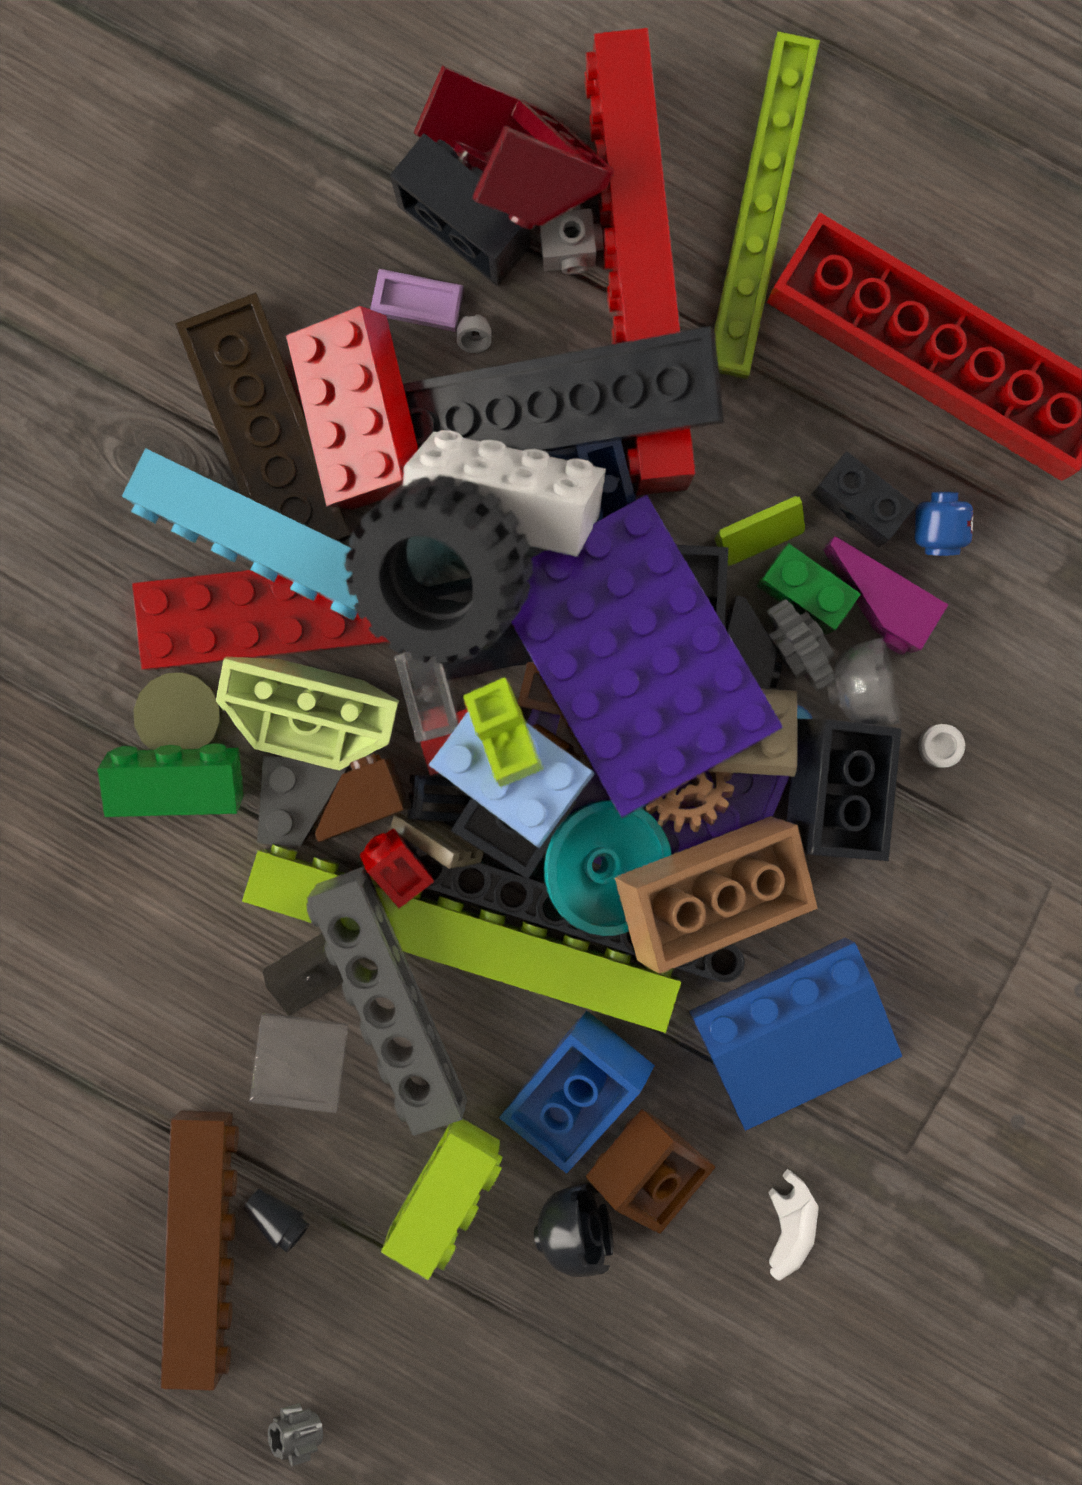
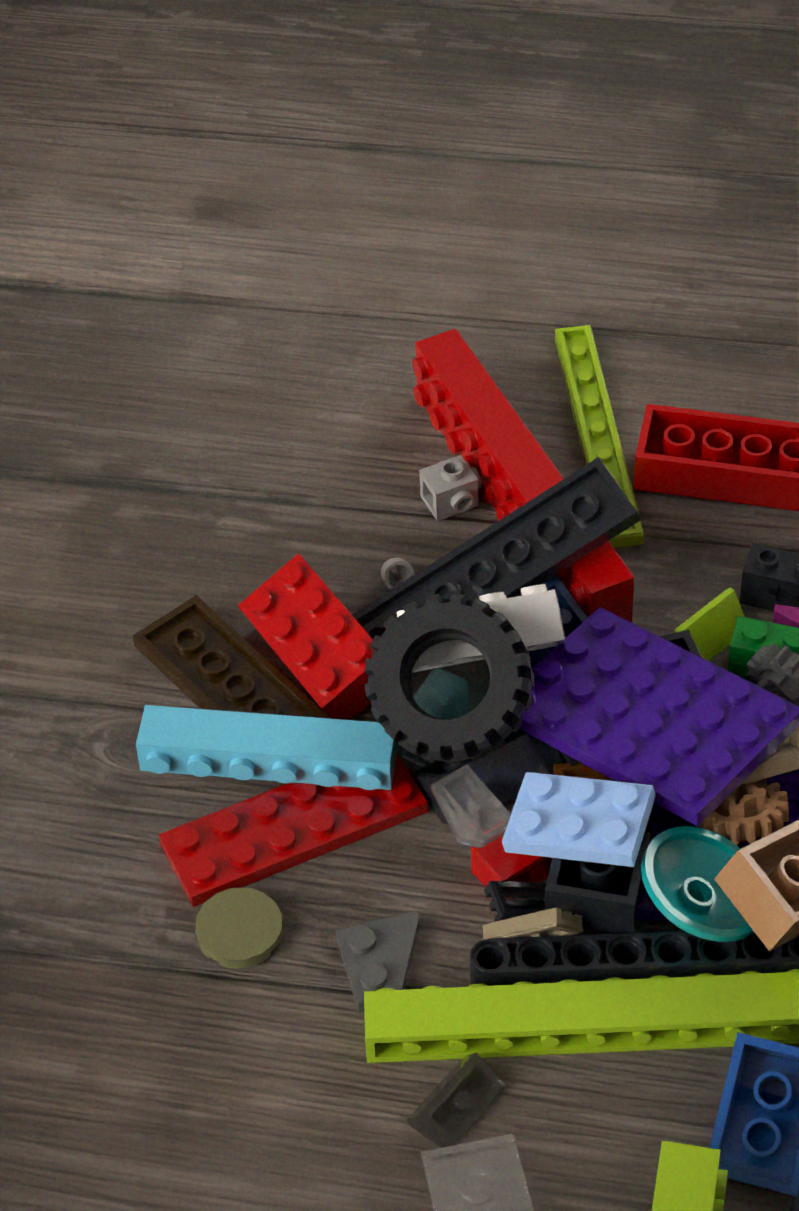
camera: 20 degrees left, 40 degrees down
(171, 781) = (255, 967): green brick -> none
(305, 711) = (366, 869): yellowish green wedge -> none
(356, 897) = (477, 976): dark grey brick -> none
(363, 797) = (451, 917): reddish brown slope -> none
(395, 867) = (506, 950): red bracket -> none
(417, 300) = (345, 567): lavender tile -> none
(438, 196) = (353, 489): black brick -> none
(503, 732) = (558, 781): lime slope -> none
(527, 154) = (405, 426): dark red windscreen -> none

